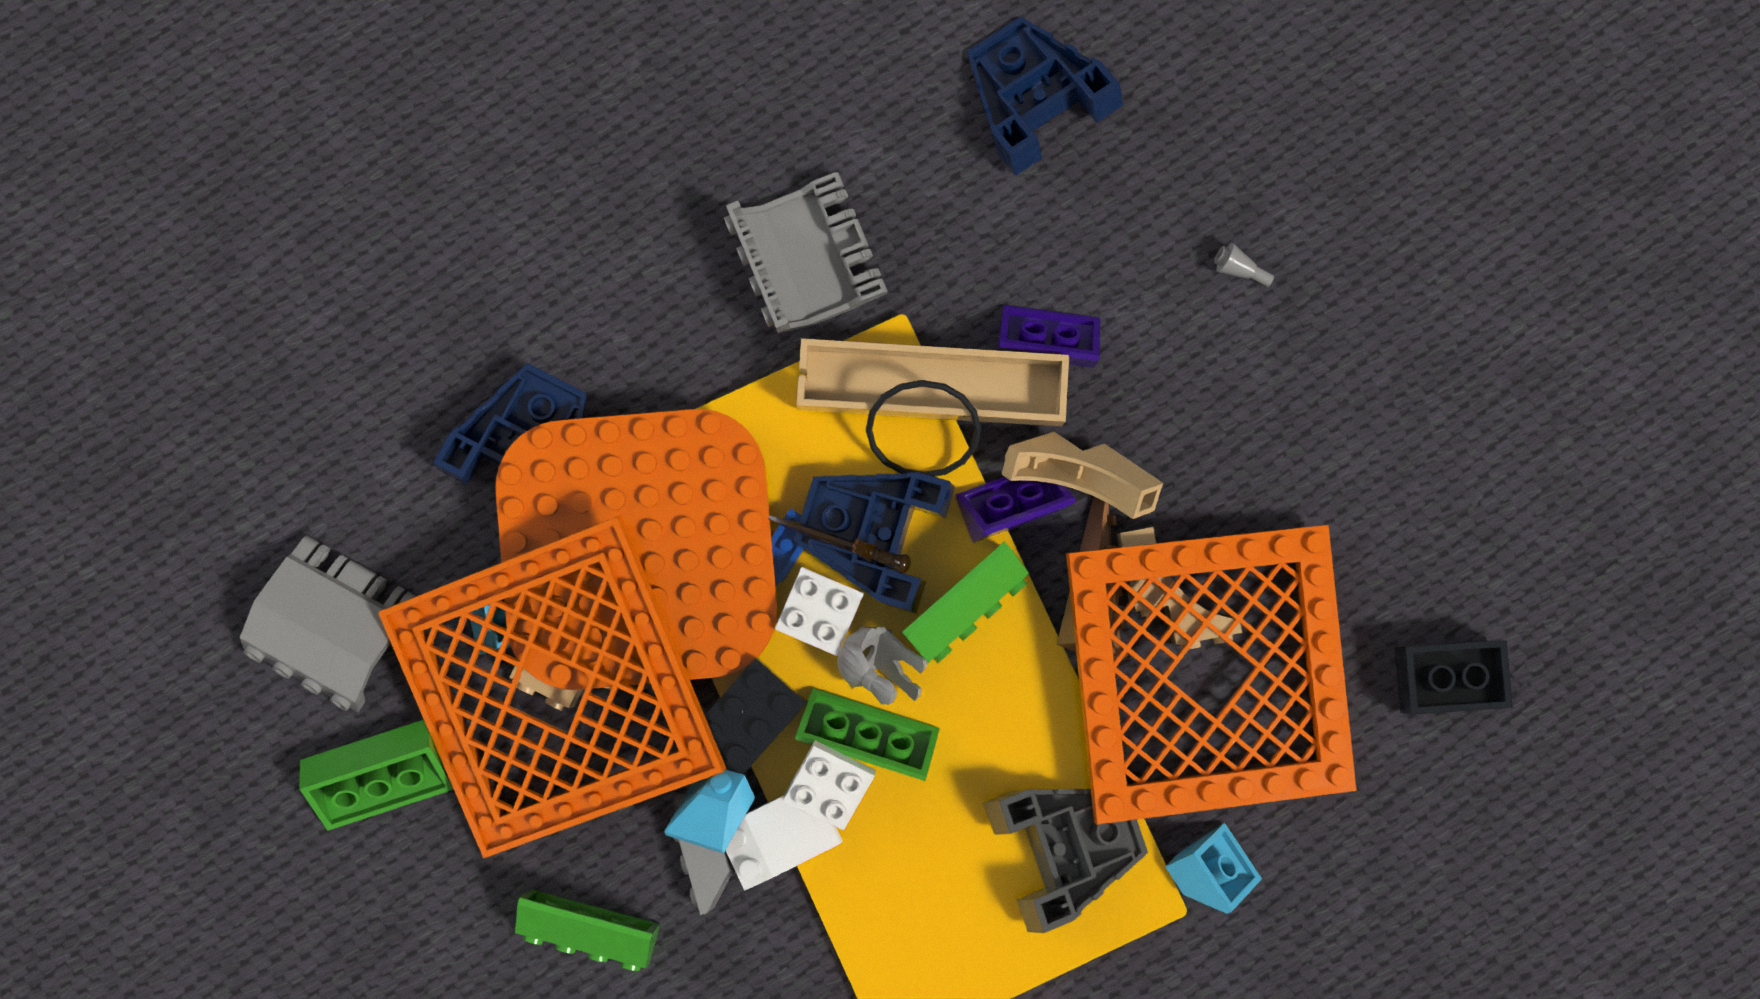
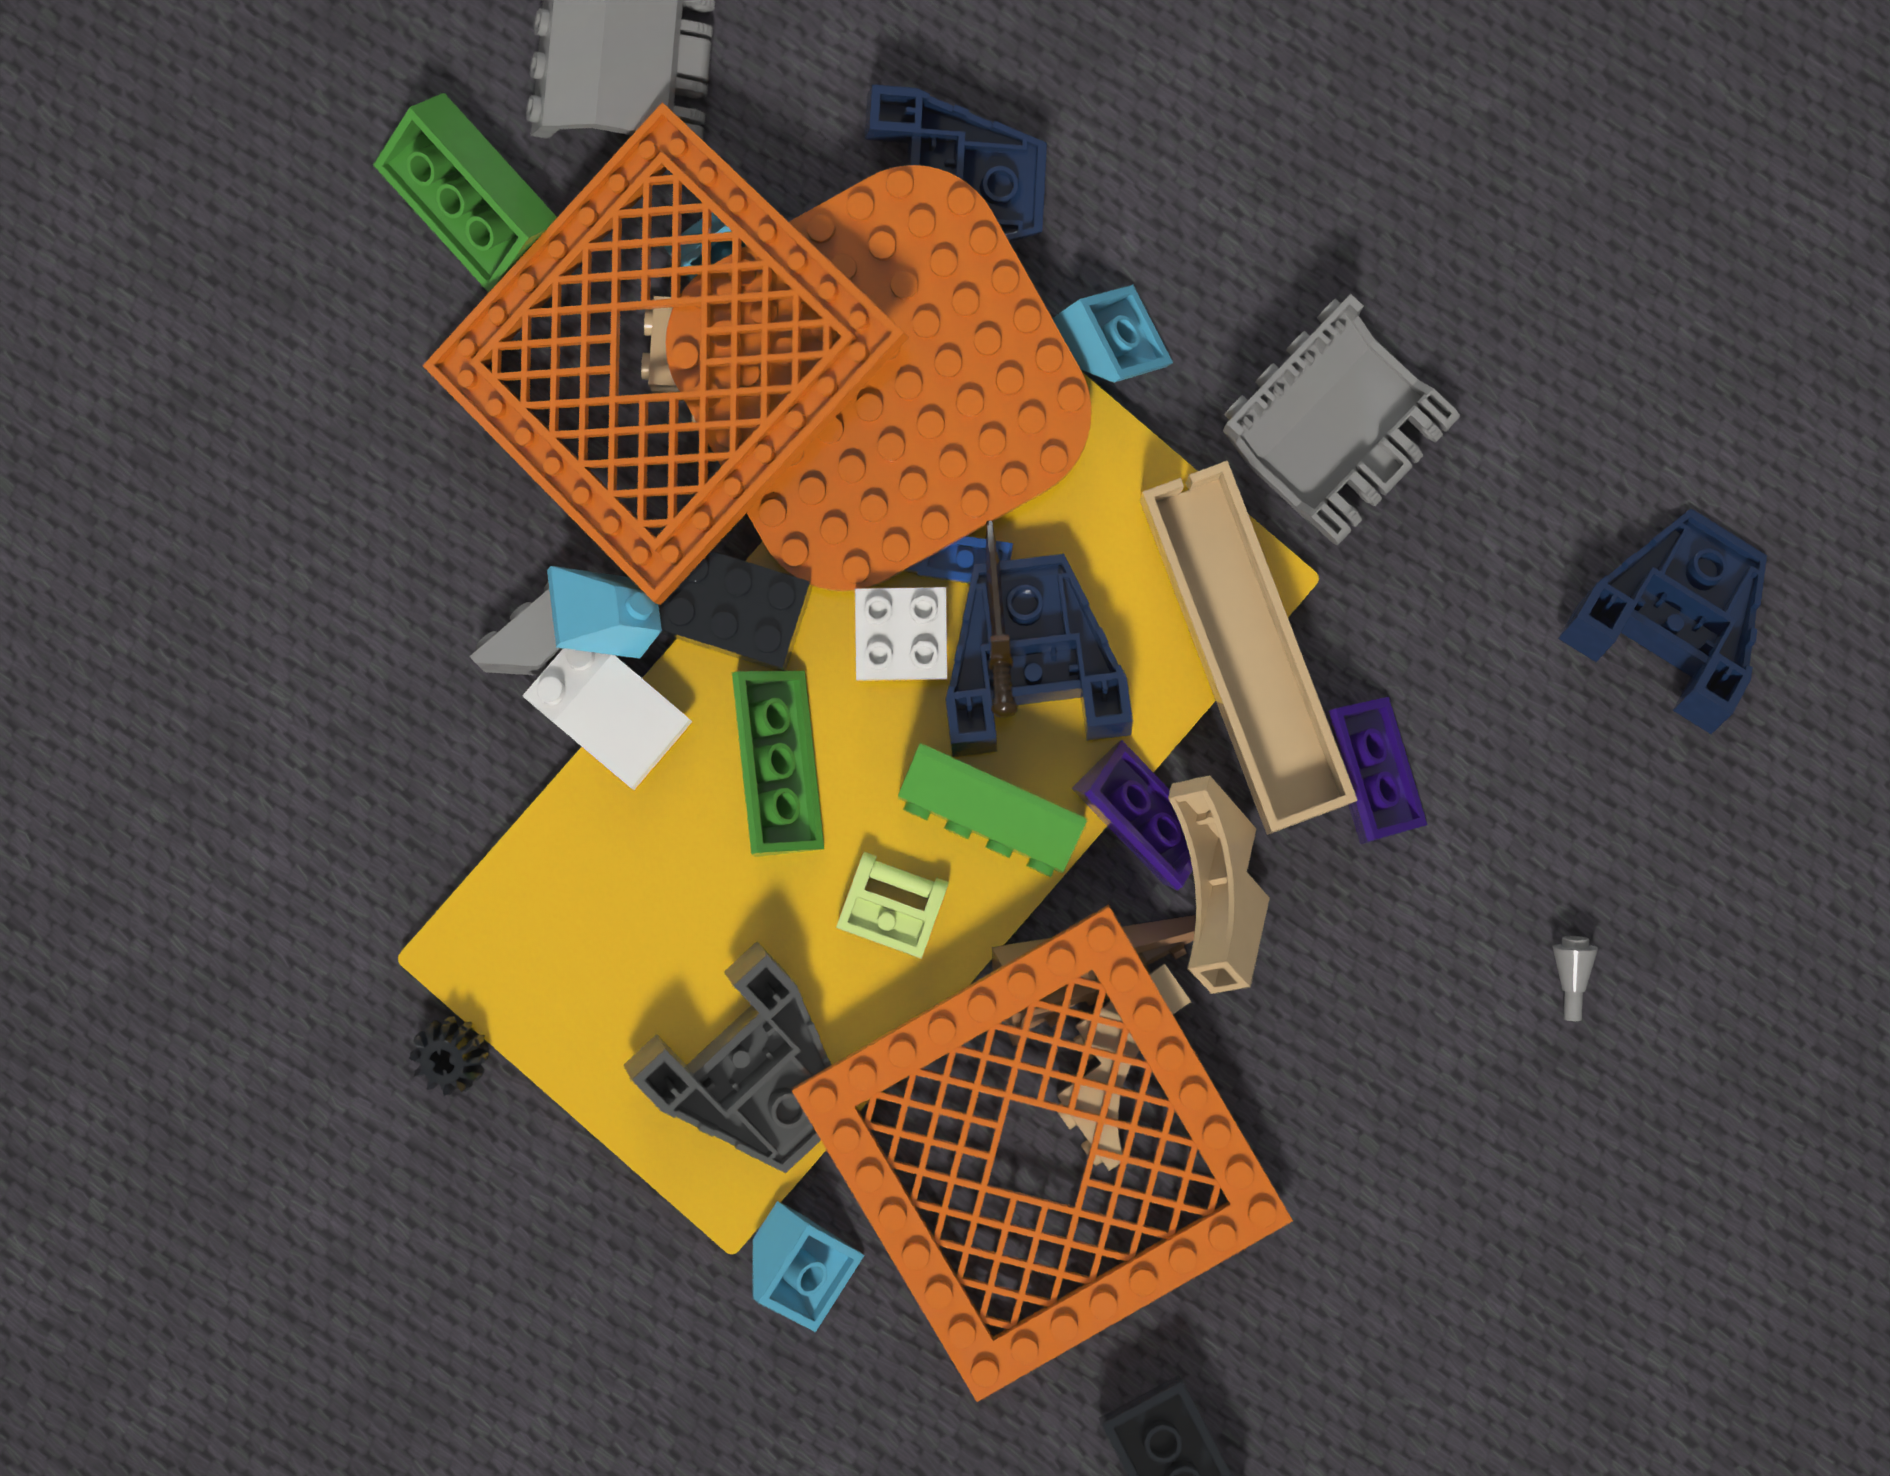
camera: 65 degrees right, 0 degrees up
(586, 928) = (392, 527): bright green slope -> none
(679, 378) = (1112, 335): none -> medium azure slope
(829, 785) = (694, 740): white plate -> none
(878, 649) = (884, 722): light grey piece -> none
(929, 384) = (1240, 642): black piece -> none
(1007, 707) = (886, 919): none -> yellowish green plate

